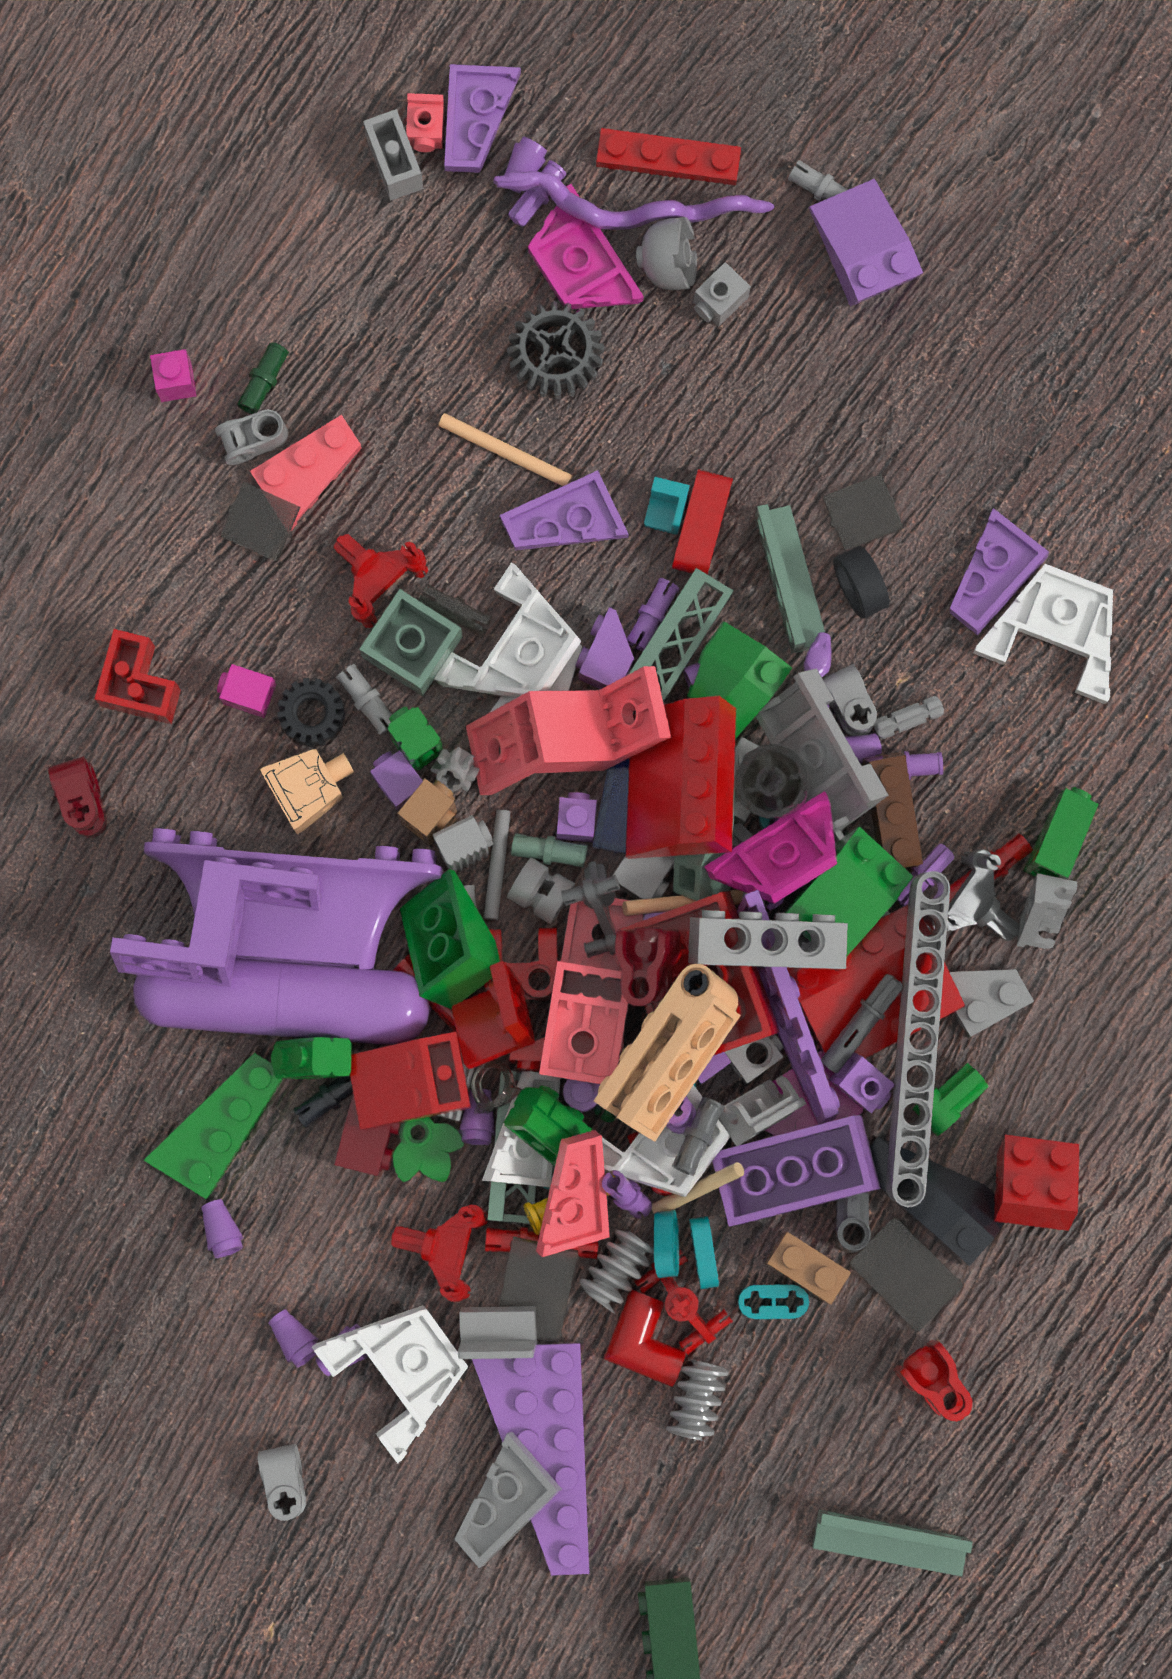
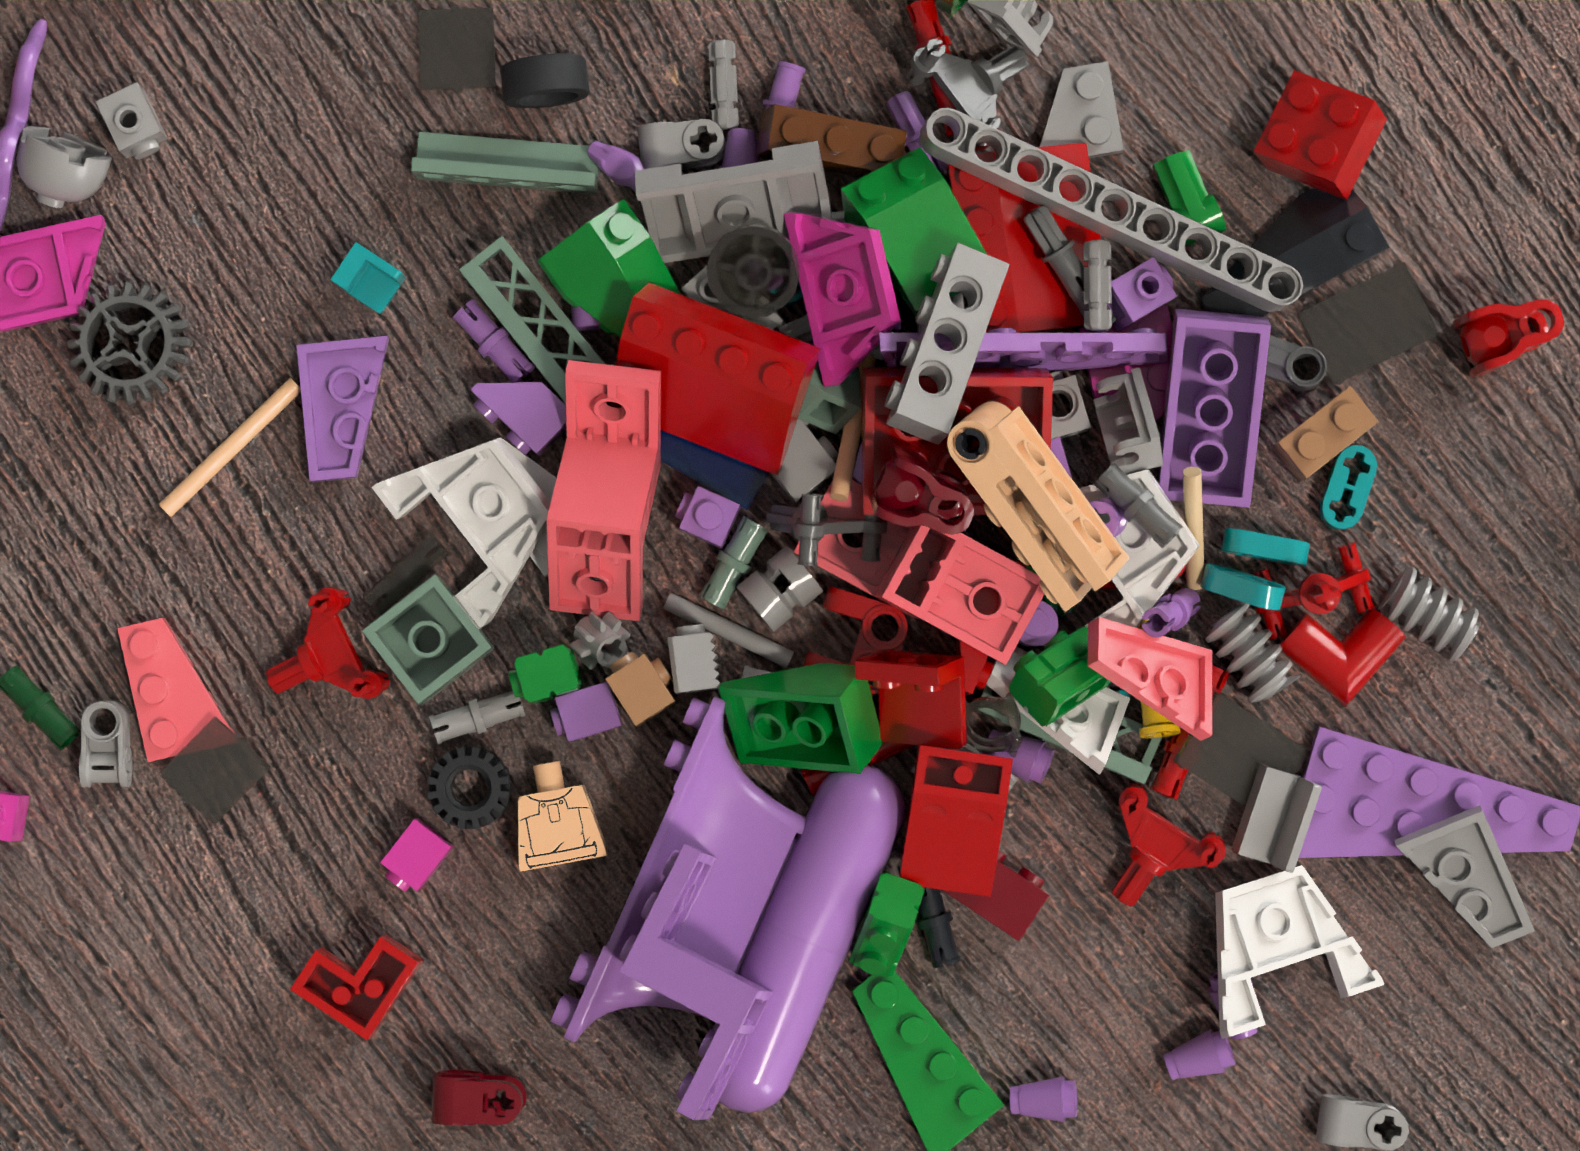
camera: 70 degrees left, 5 degrees up
(427, 1154) = (1040, 828): green plate -> none
(702, 522) = (404, 243): red beam -> none
(856, 1048) = (1097, 285): none -> light grey axle

